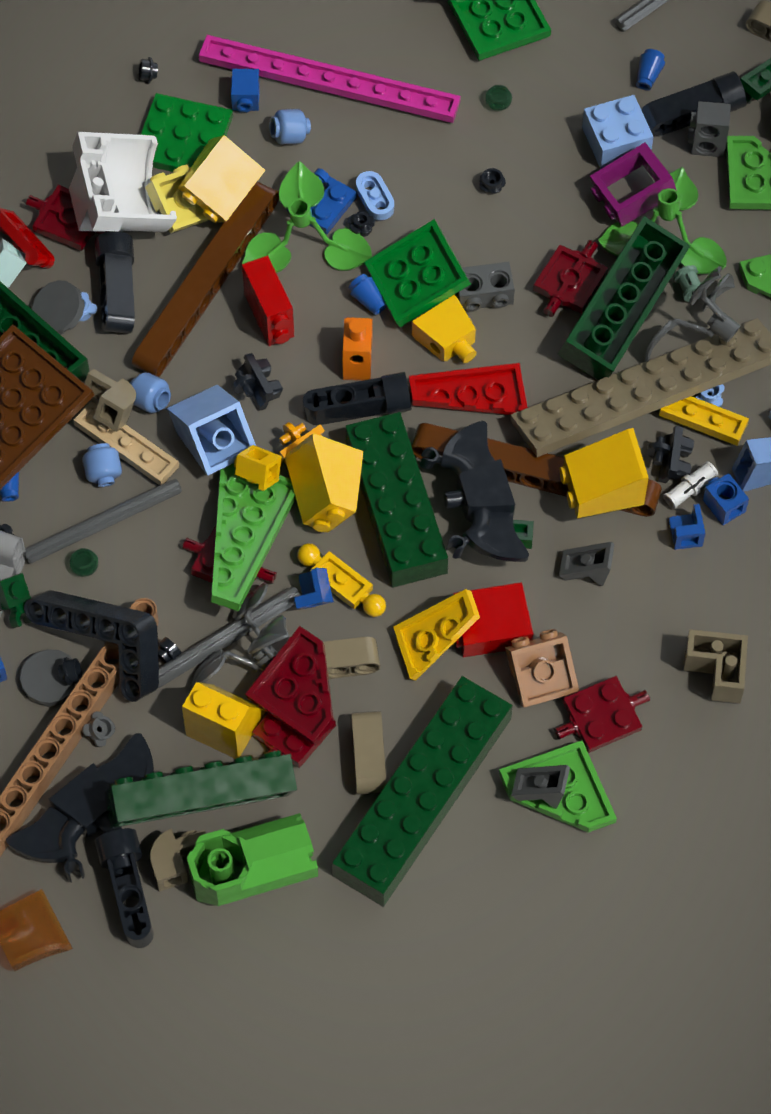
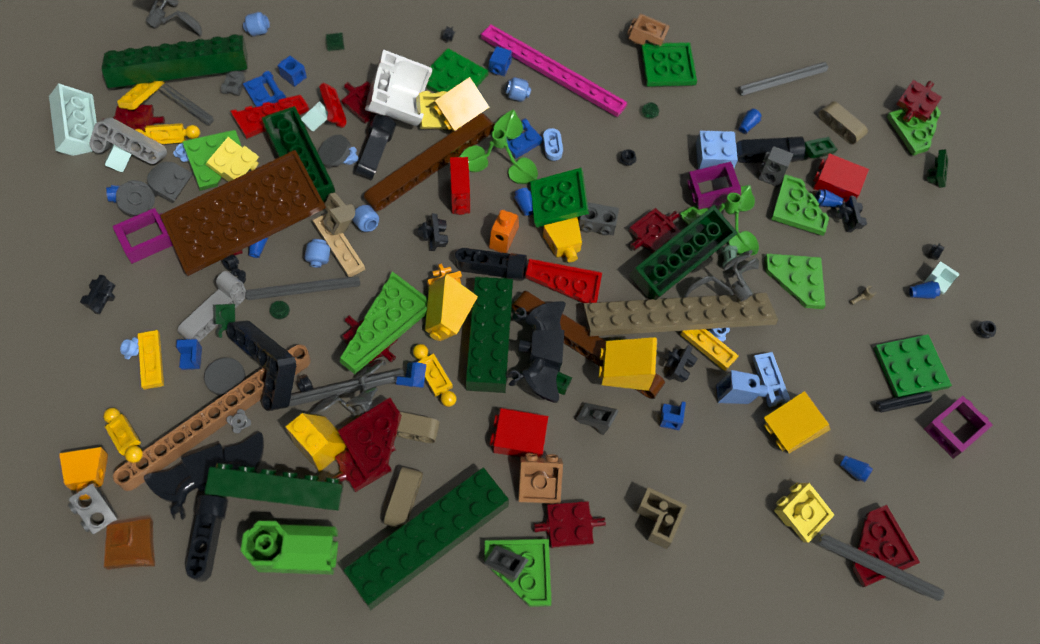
camera: 15 degrees right, 0 degrees up
(70, 671) = (236, 376): black plate -> none
(168, 857) = (240, 522): dark tan brick -> none
(212, 428) = (393, 253): light blue slope -> none
(258, 466) = (410, 285): yellow brick -> none
(362, 229) = (539, 162): black plate -> none
(434, 631) = (478, 429): yellow wing -> none
(690, 485) = (685, 387): white pin -> none
(725, 509) = (705, 411): blue brick -> none

